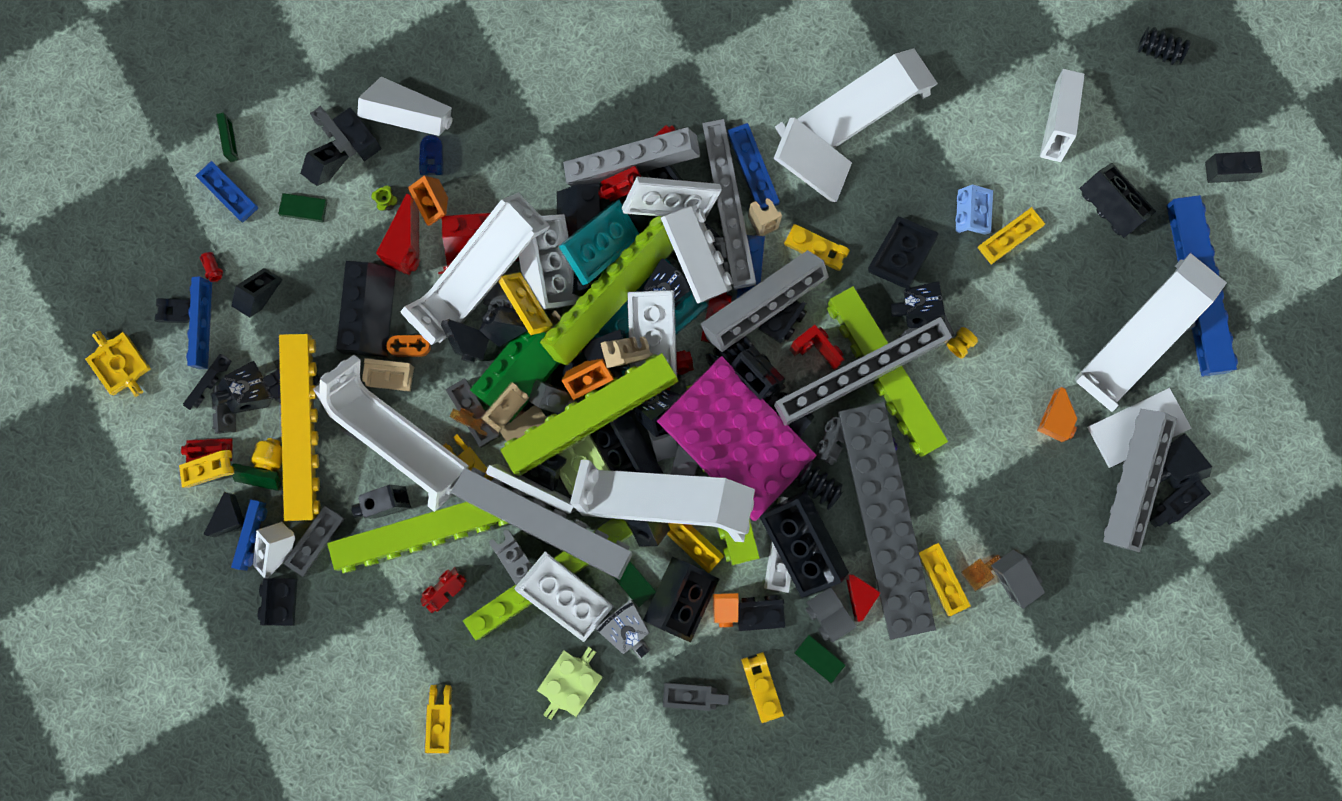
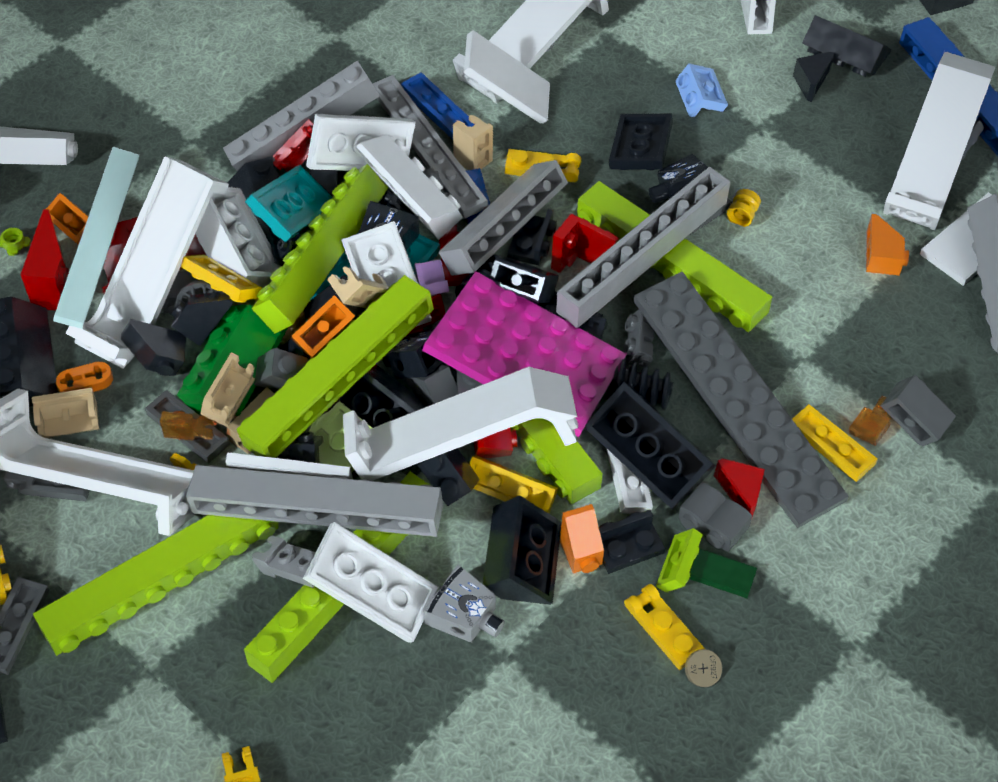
camera: 20 degrees left, 25 degrees down
(382, 502) = (94, 549): black torso -> none
(431, 148) = (60, 180): clear blue plate -> none
(442, 230) = (96, 239): none -> light aqua tile
(448, 583) = (197, 644): red hinge -> none
(569, 683) = (411, 696): yellowish green plate -> none
(635, 585) = (449, 552): dark green tile -> none
(689, 339) = (431, 277): none -> lavender panel
(692, 697) = (580, 661): dark grey hinge -> none
(777, 730) = (703, 668): none -> dark tan piece
(791, 642) = (679, 560): none -> lime plate
(1011, 235) = (750, 103): yellow plate -> none
(1074, 220) = (812, 72): none -> black slope

